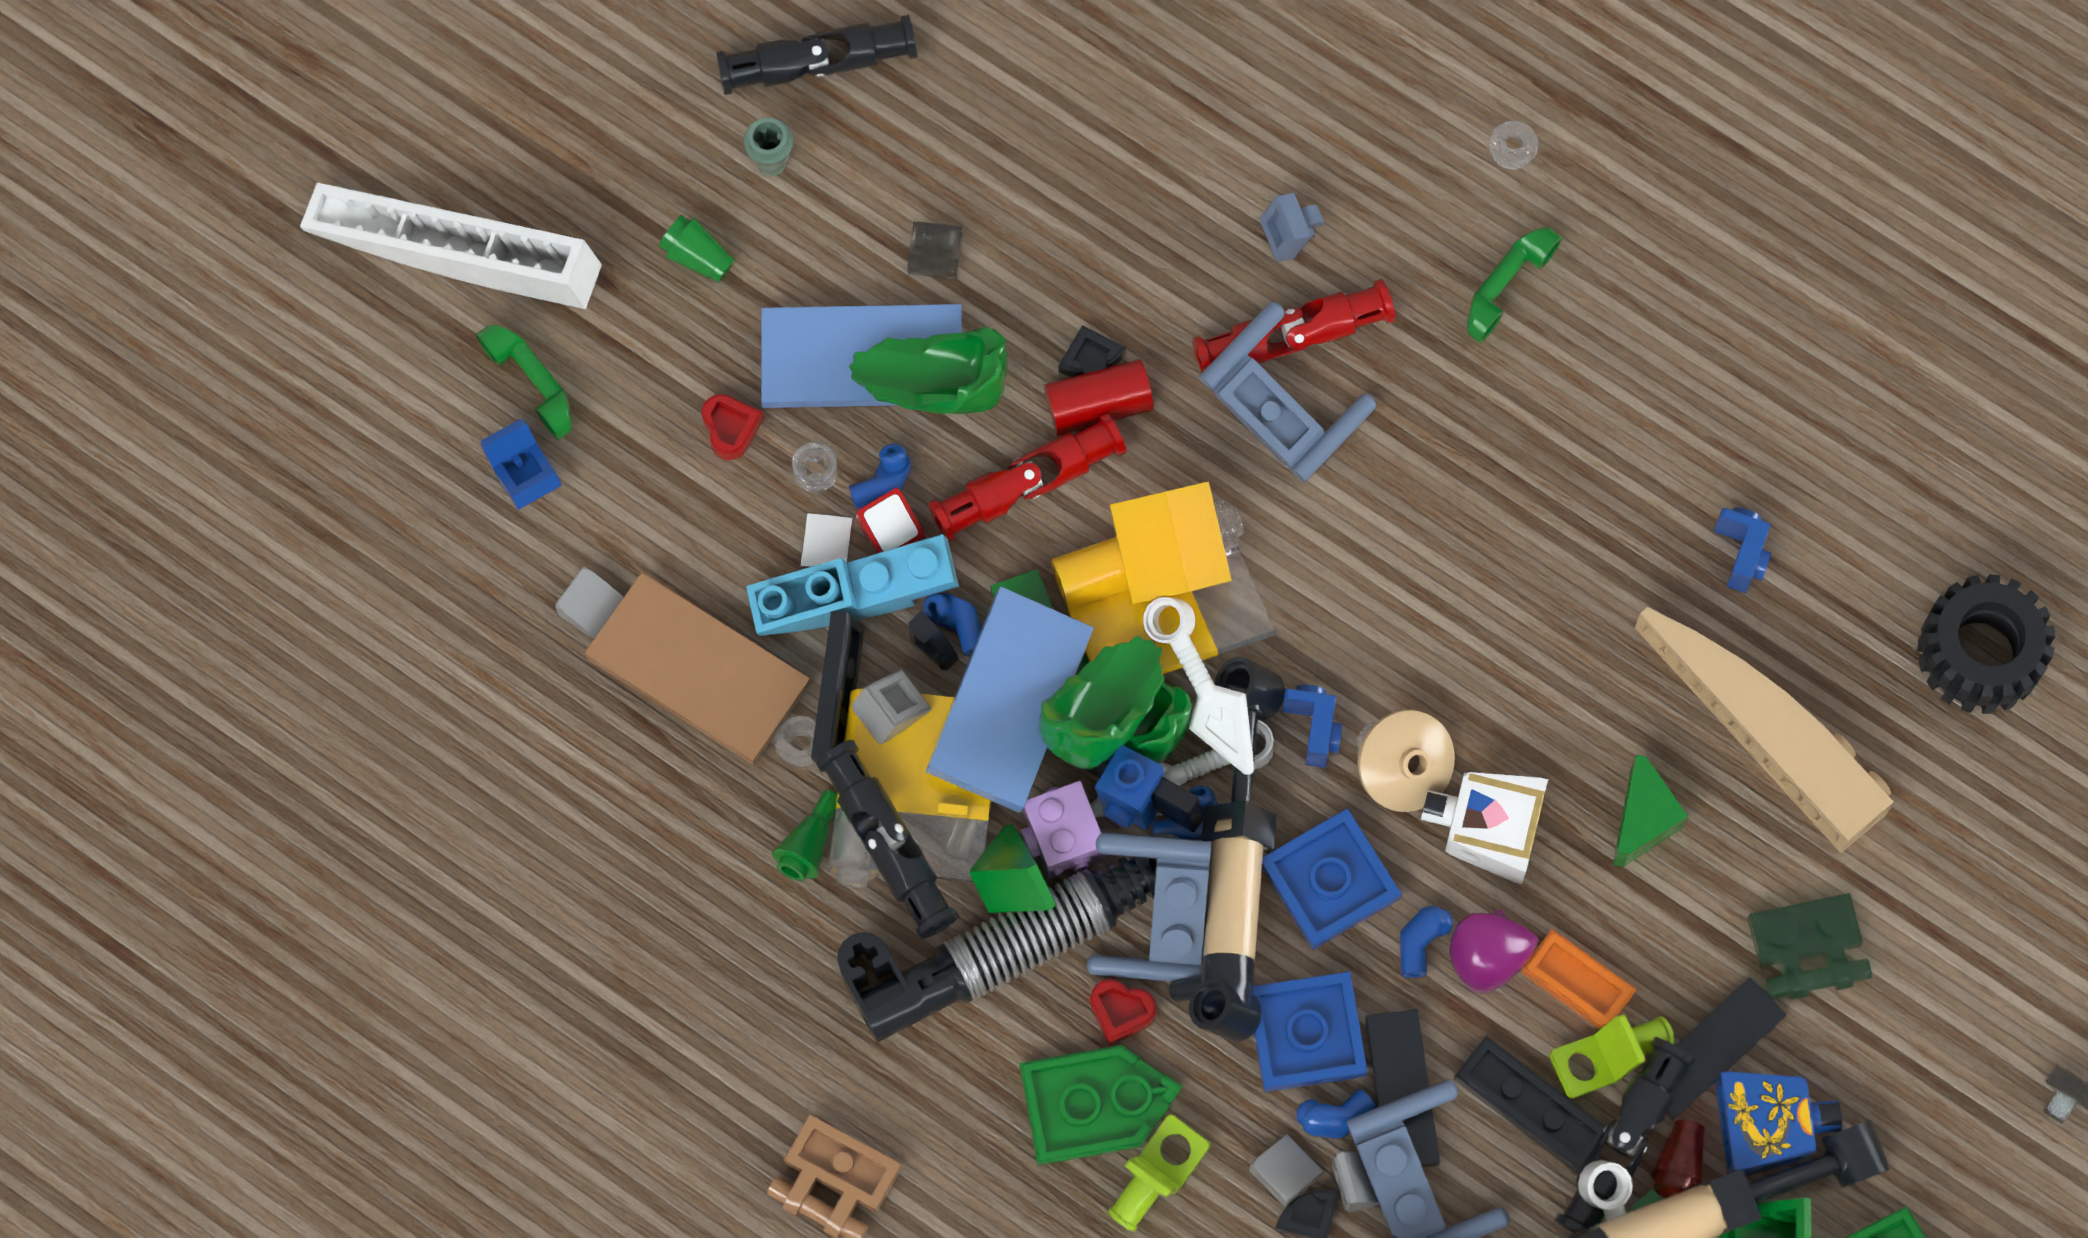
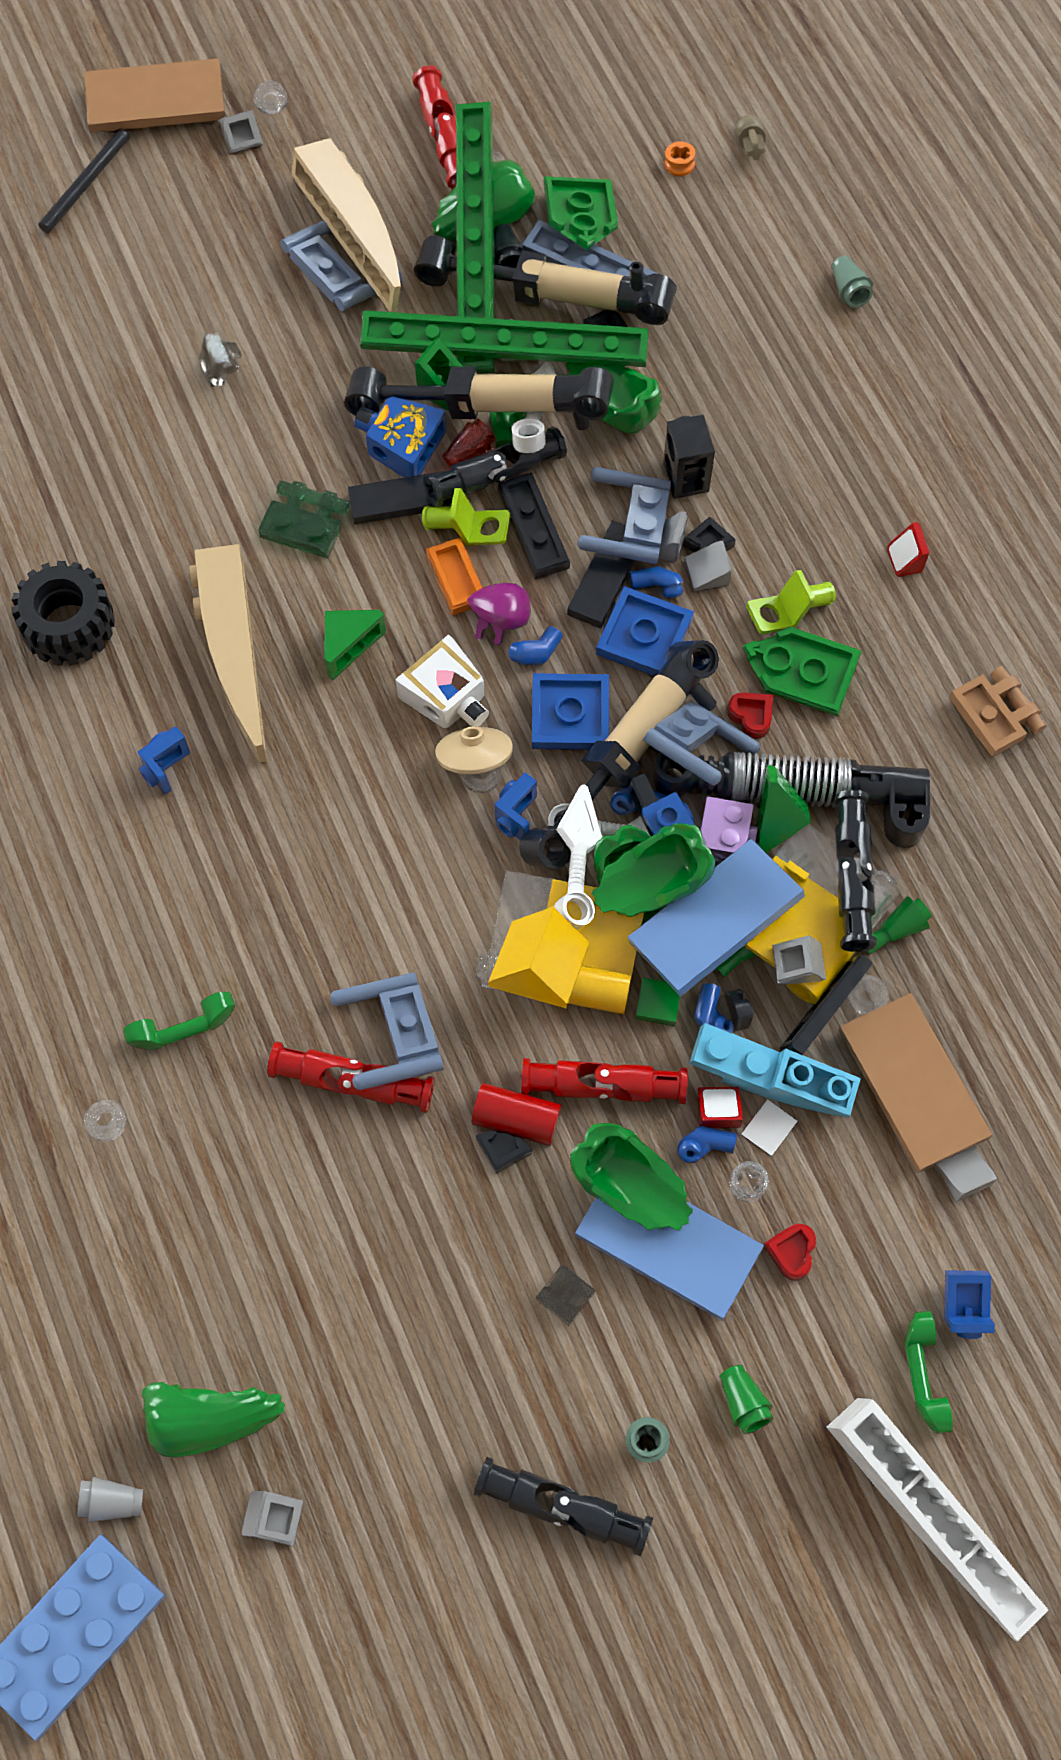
camera: 150 degrees left, 5 degrees down
(1289, 225) = (303, 1152): sand blue tile -> none

